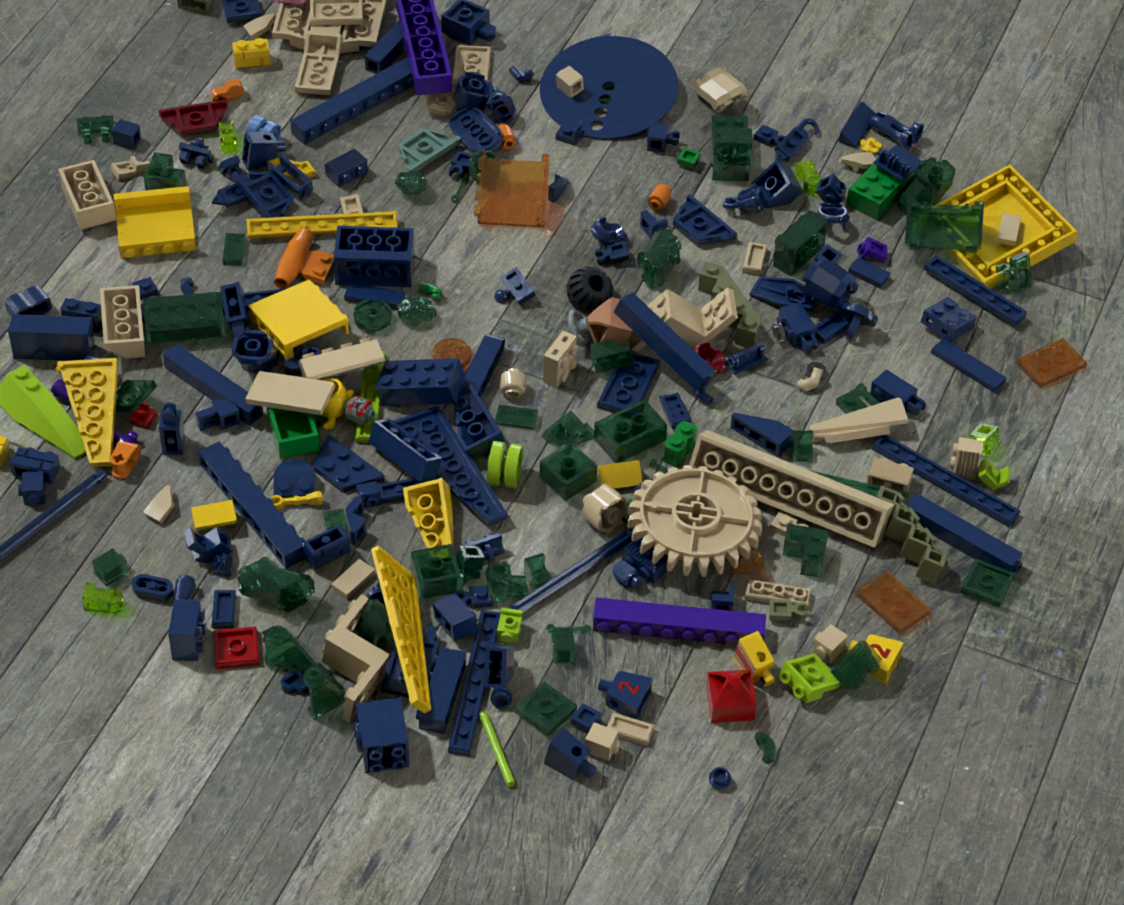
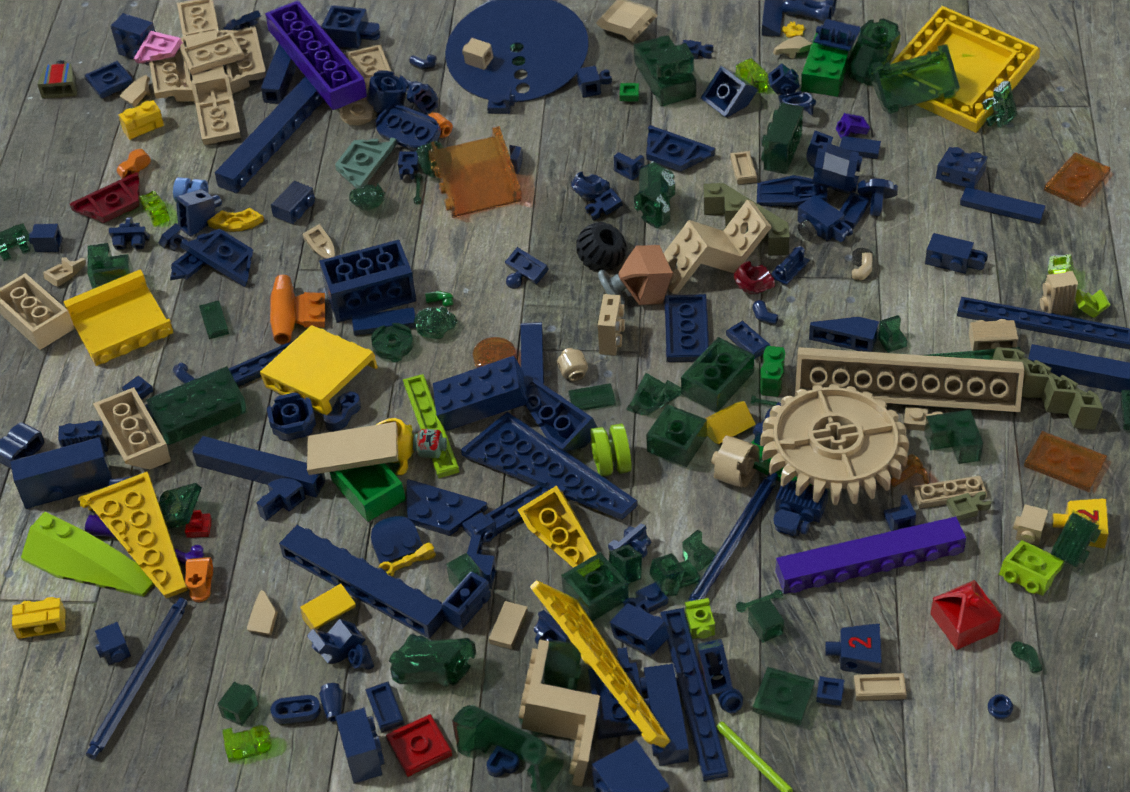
camera: 15 degrees left, 0 degrees up
(33, 461) = (99, 614): dark blue brick -> none
(171, 430) = (240, 529): dark blue brick -> none
(235, 308) = (248, 380): dark blue brick -> none
(285, 165) = (245, 223): dark blue window -> none
(316, 224) = (293, 267): yellow tile -> none
(341, 361) = (388, 397): tan slope -> none
(405, 450) = (499, 469): dark blue brick -> none
(569, 756) = (838, 739): dark blue torso -> none
(602, 741) = (863, 711): tan brick -> none
(610, 355) = (657, 305): clear green slope -> none
(659, 197) = (621, 137): orange brick -> none
(664, 341) = (710, 273): dark blue brick -> none
(747, 200) = (708, 114): dark blue piece -> none
(755, 656) = (968, 564): yellow torso -> none
(794, 140) = (721, 45): dark blue plate -> none
(851, 402) = (922, 281): clear green plate -> none
(861, 423) = (939, 292): tan wedge -> none
(975, 290) = (969, 133): dark blue plate -> none
(1008, 229) = (971, 66): tan tile -> none

